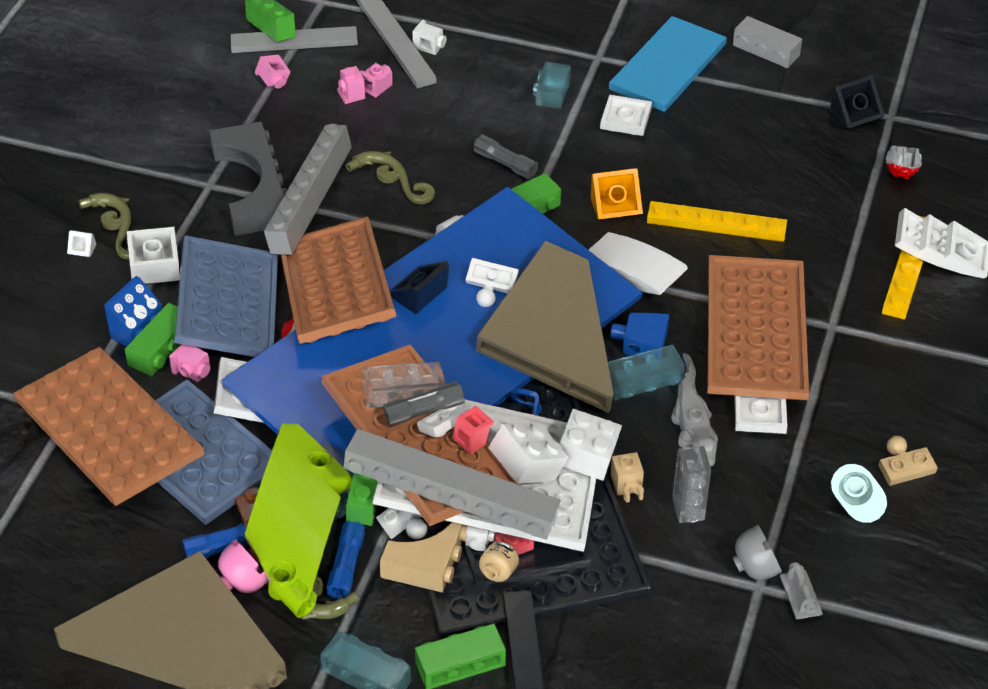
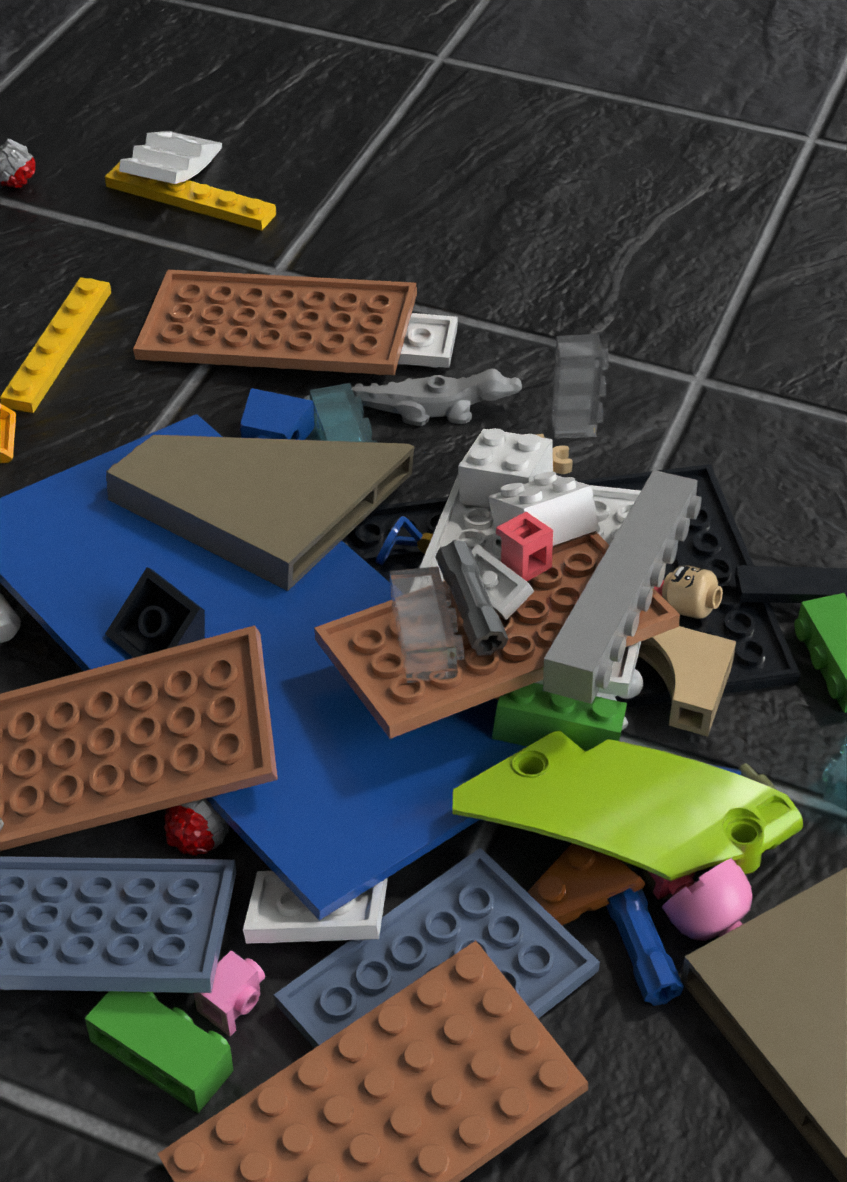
camera: 85 degrees left, 0 degrees up
(131, 311) = (99, 1083): blue slope -> none
(491, 277) = (156, 547): white plate -> none
(638, 262) = (128, 413): white slope -> none
(755, 555) = (667, 358): light grey cylinder -> none
(800, 592) = (701, 341): light grey hinge -> none
(859, 493) = (568, 272): light aqua piece -> none
(905, 465) = (516, 236): tan plate -> none

